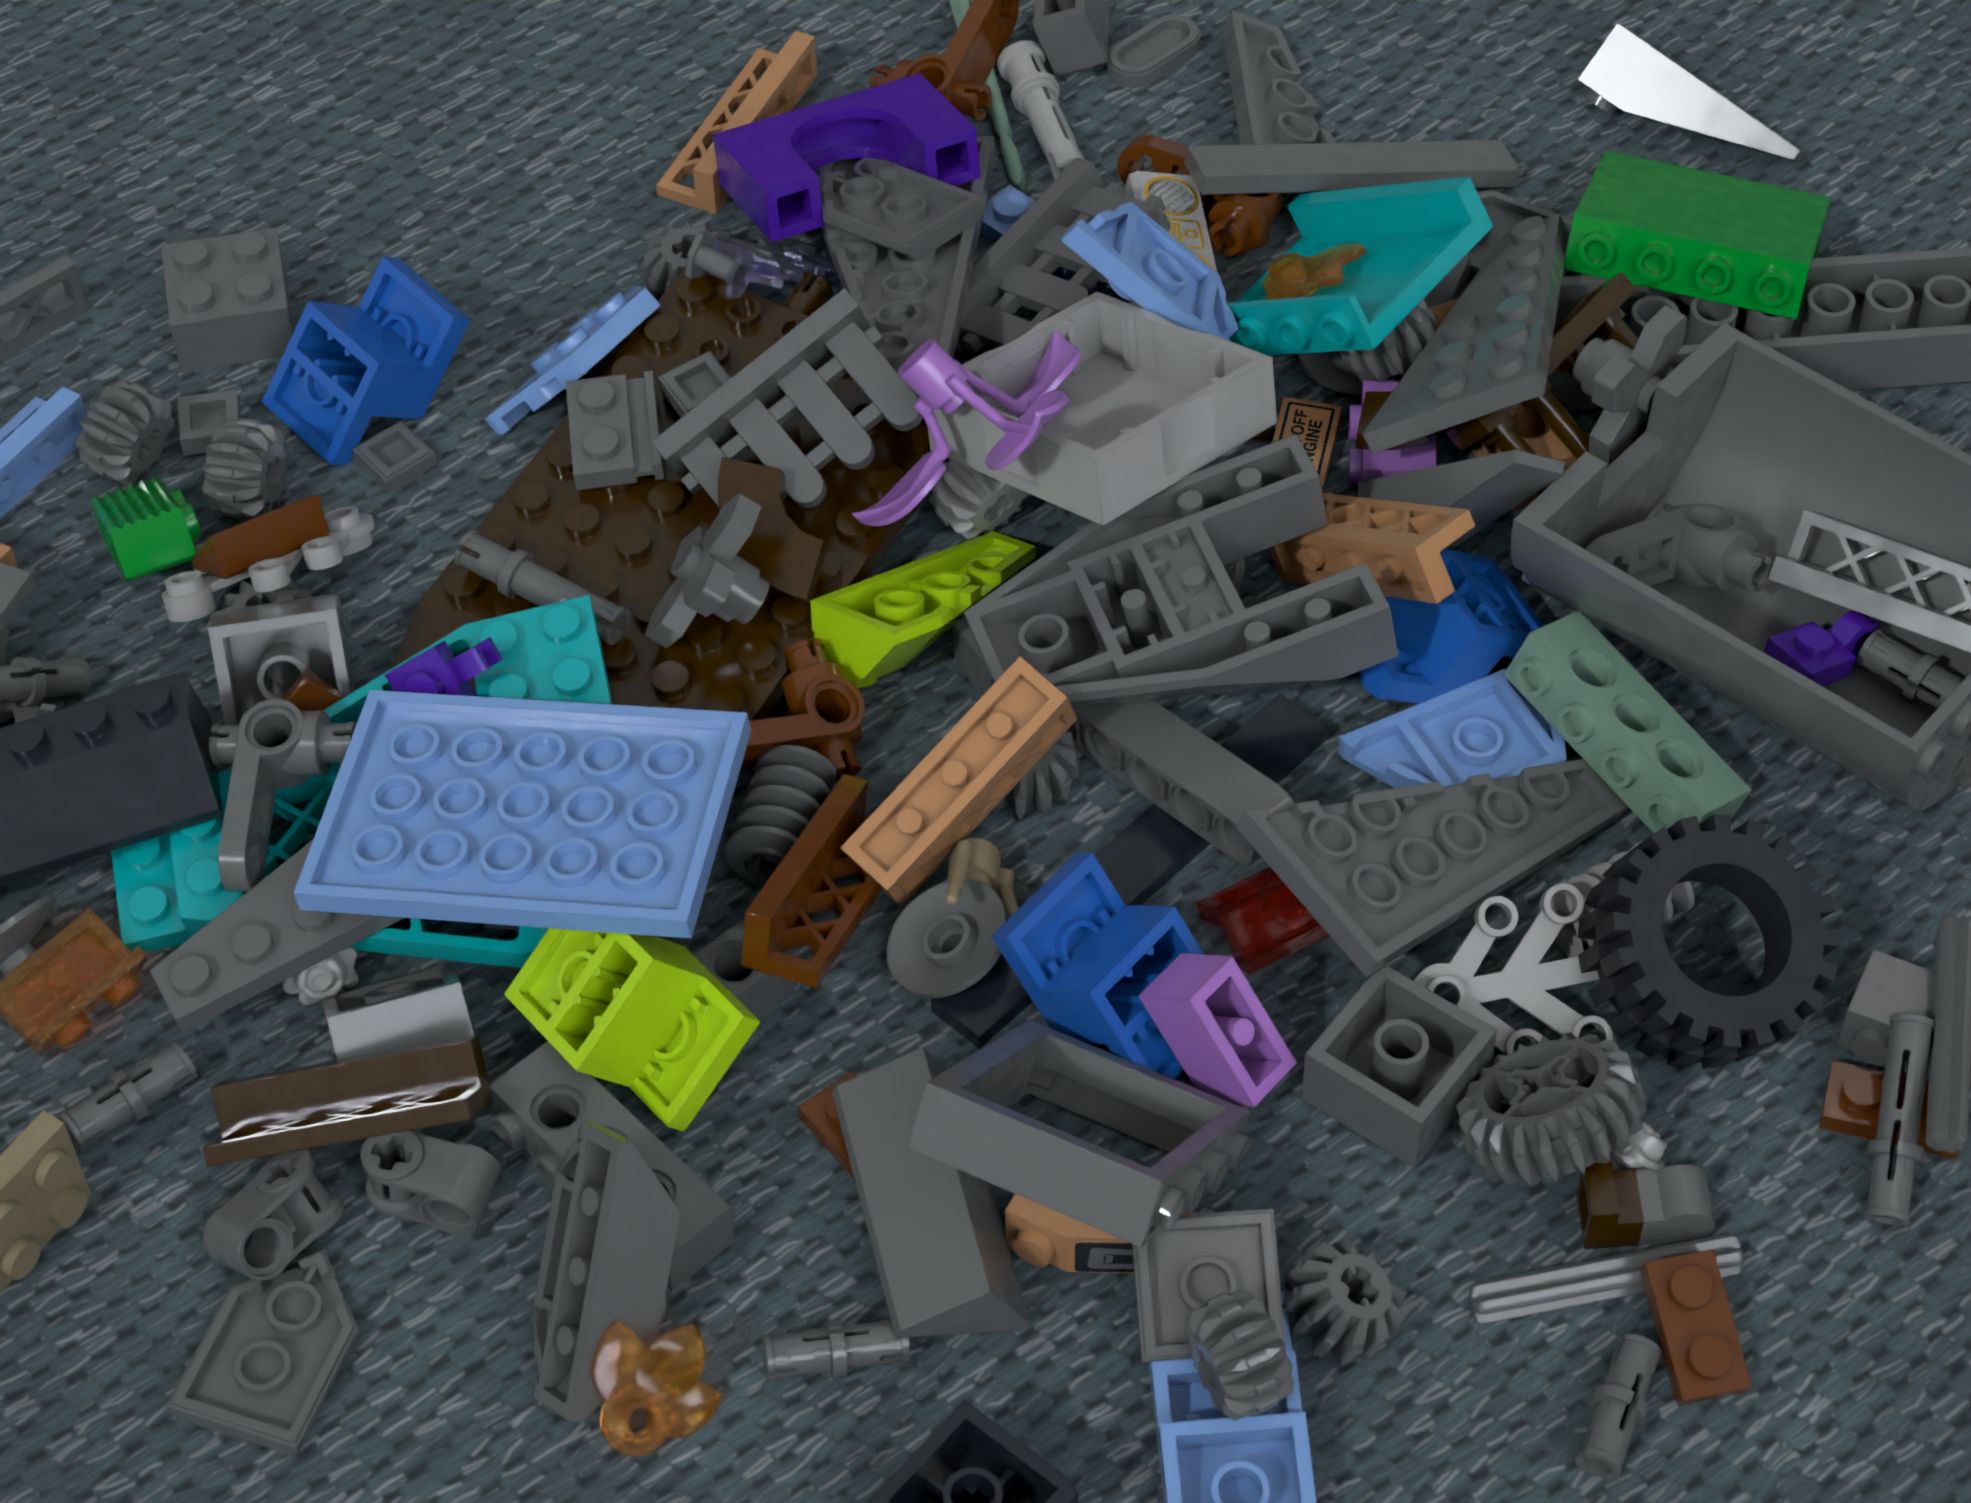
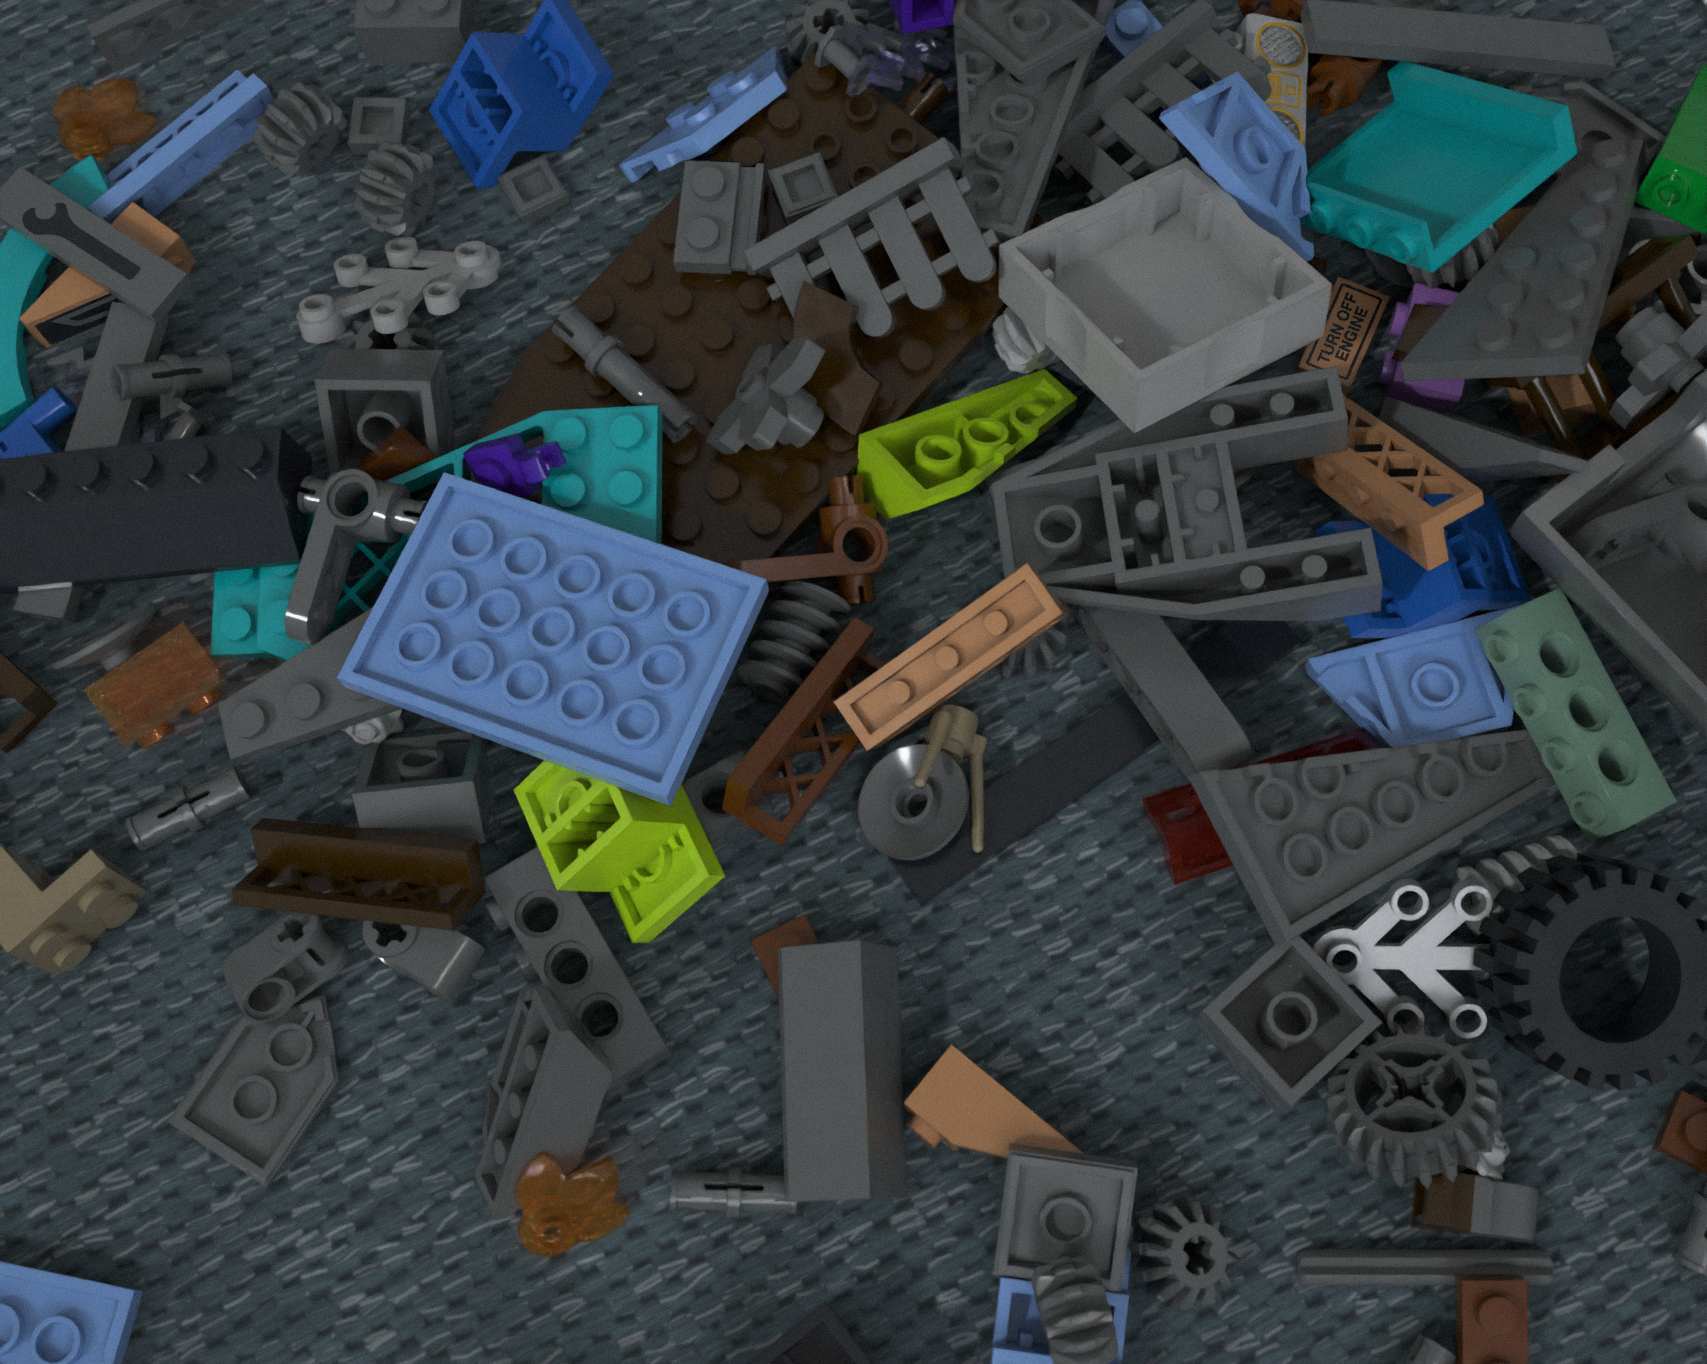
camera: 15 degrees right, 20 degrees up
(146, 528) = (299, 235): green brick -> none
(262, 538) = (395, 273): reddish brown slope -> none
(946, 385) = (1014, 260): medium lavender plant -> none
(970, 1127) = (933, 1117): dark grey window -> none
(1092, 957) = (1052, 875): blue bracket -> none
(1218, 1028) = (1130, 960): medium lavender brick -> none
(1301, 276) = (1388, 160): clear orange plate -> none

